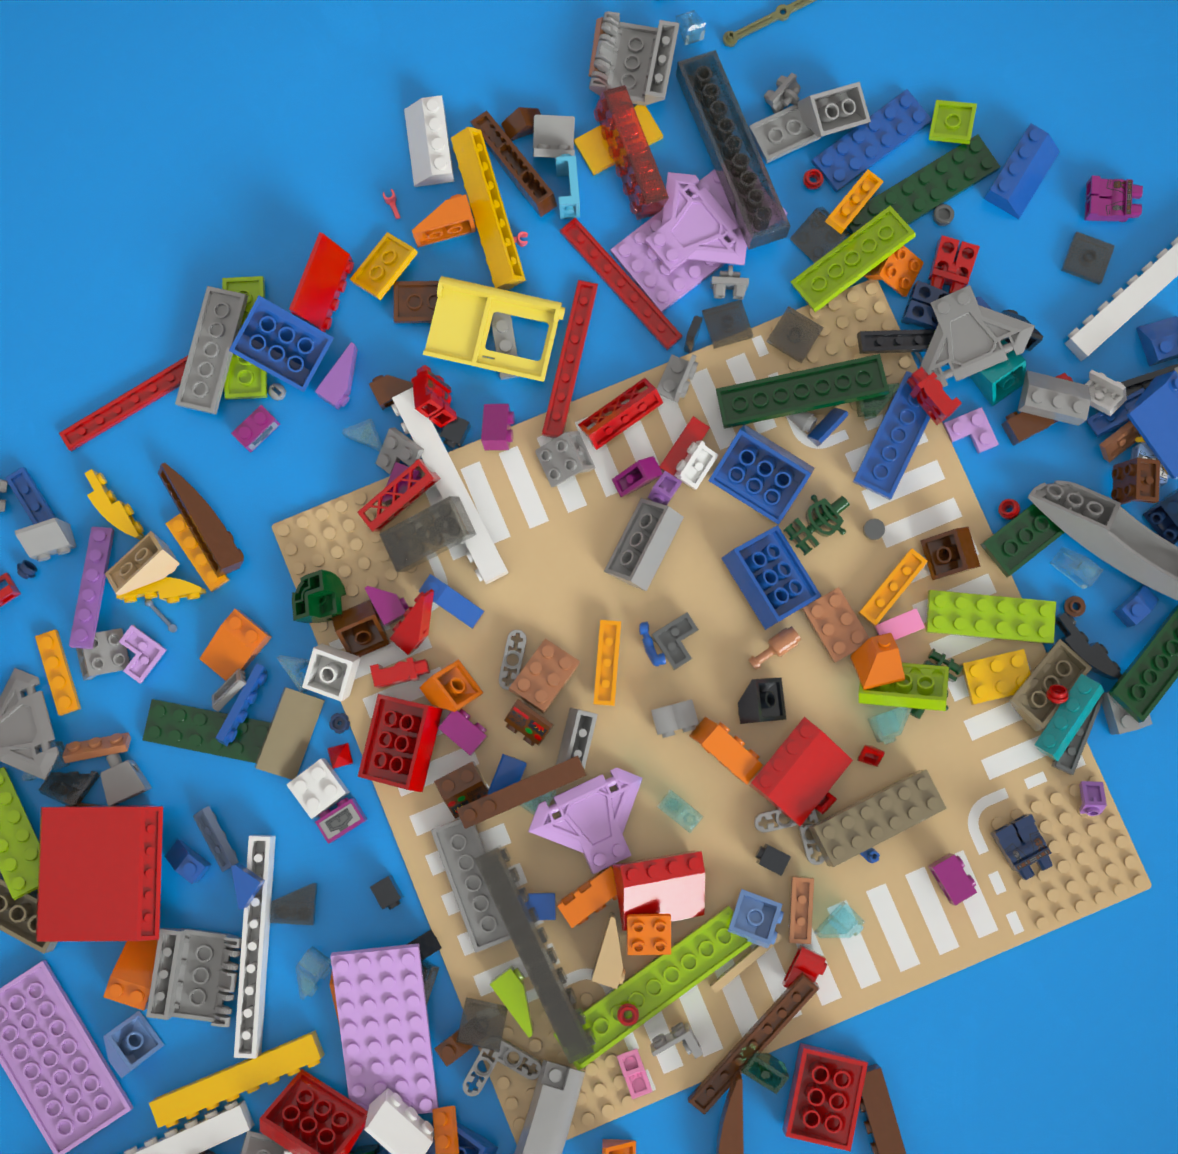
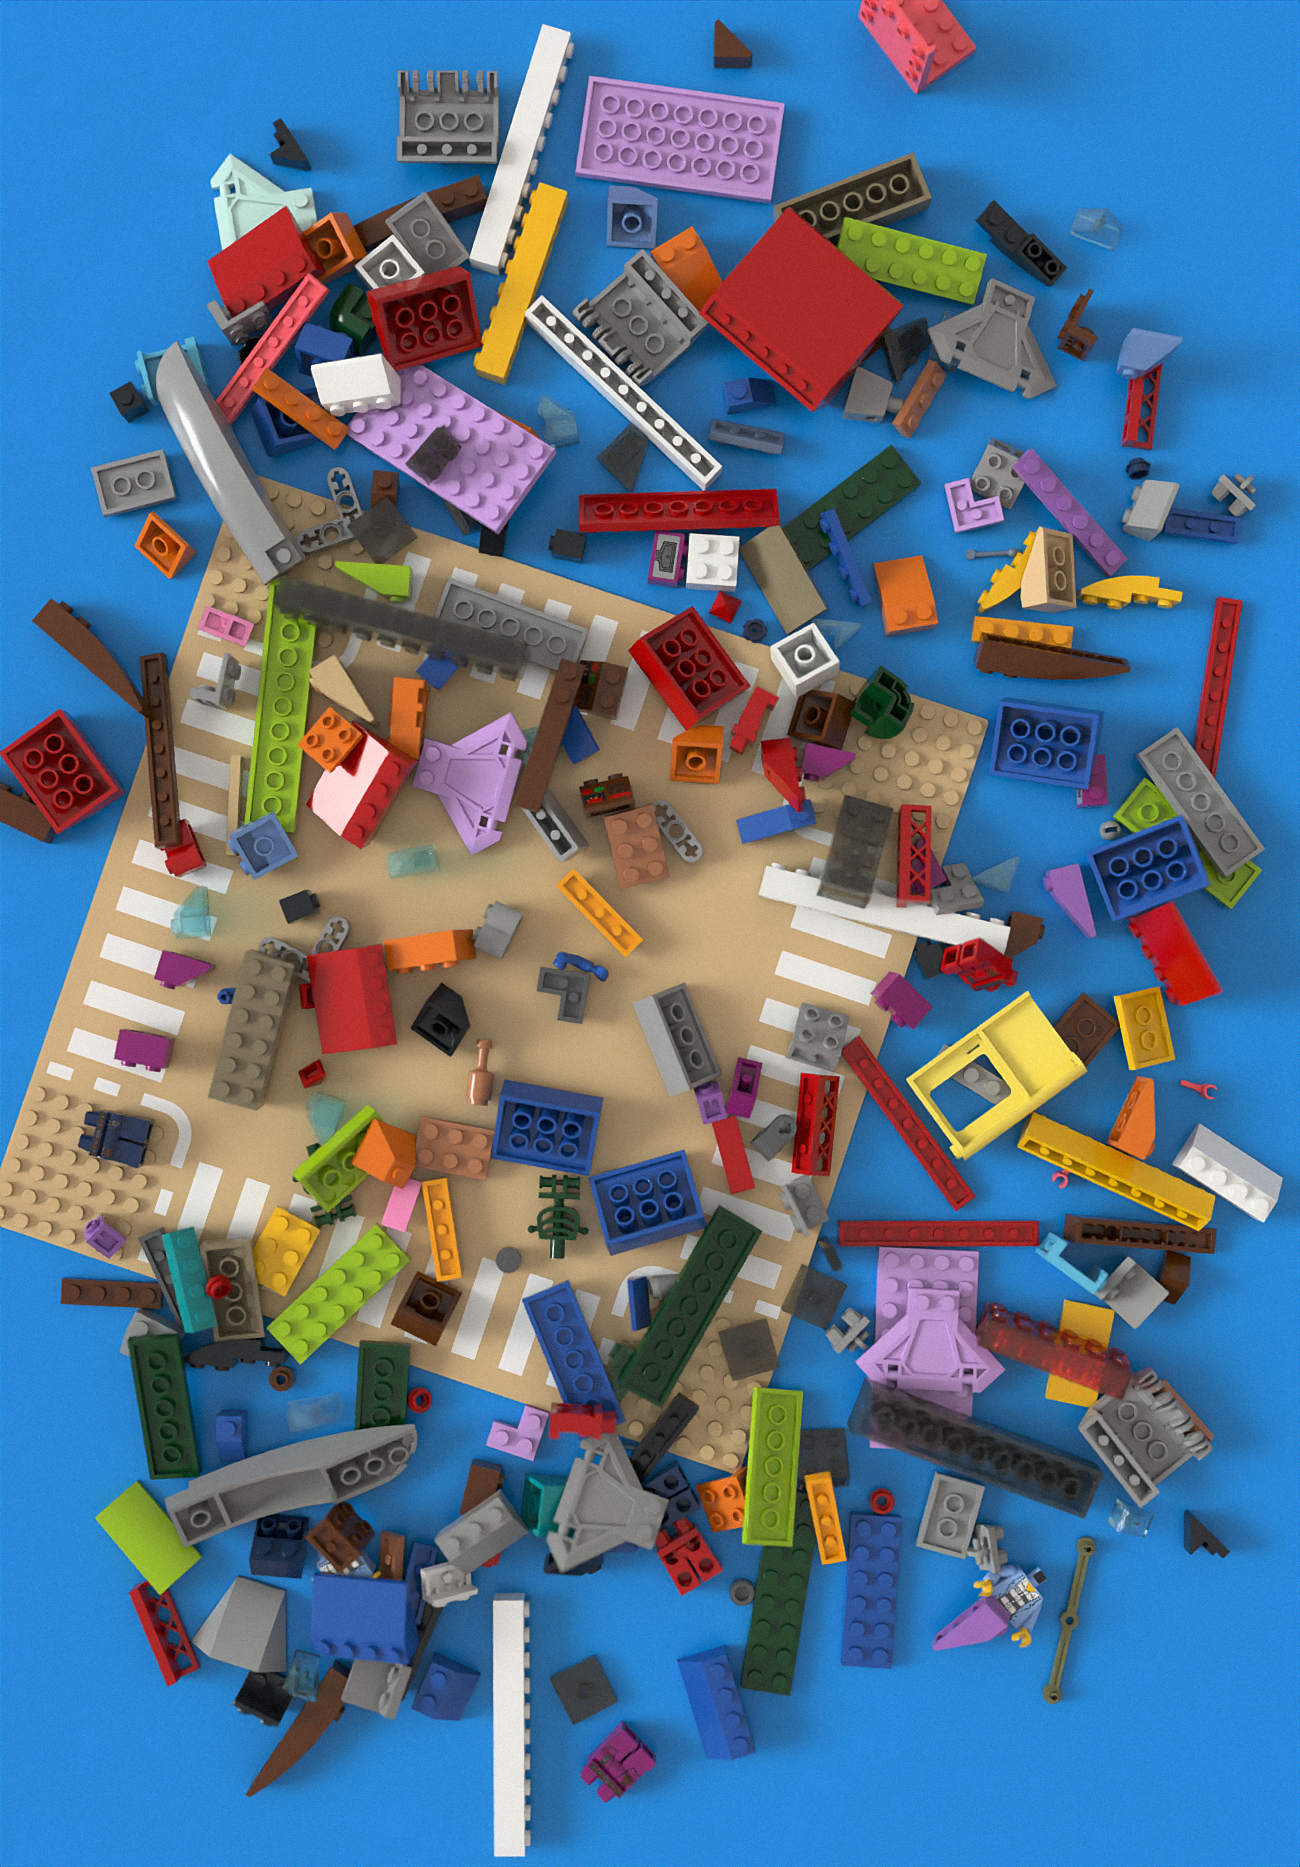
camera: 125 degrees right, 5 degrees up
(58, 672) = (1018, 420): light orange plate -> none
(228, 690) = (869, 557): light grey tile -> none
(245, 884) = (681, 428): blue slope -> none
(254, 475) = (1045, 742): none -> blue slope
(302, 840) = (678, 510): none -> red plate
(402, 1033) = (434, 454): none -> clear smoke bracket
(463, 731) = (649, 732): magenta brick -> none
(628, 1021) = (274, 657): red plate -> none
(652, 431) = (771, 1140): none -> dark grey piece
(696, 464) = (708, 1150): white bracket -> none
(766, 1071) = (127, 740): clear green slope -> none
(798, 51) = (1017, 1595): none -> torso
(801, 910) = (234, 892): nougat plate -> none
(834, 110) = (928, 1578): light grey slope -> none
(836, 60) = (975, 1625): none -> medium lavender slope
(881, 901) = (179, 969): none -> magenta slope
(952, 121) = (821, 1682): lime plate -> none
(1121, 762) = (111, 1293): none -> reddish brown plate

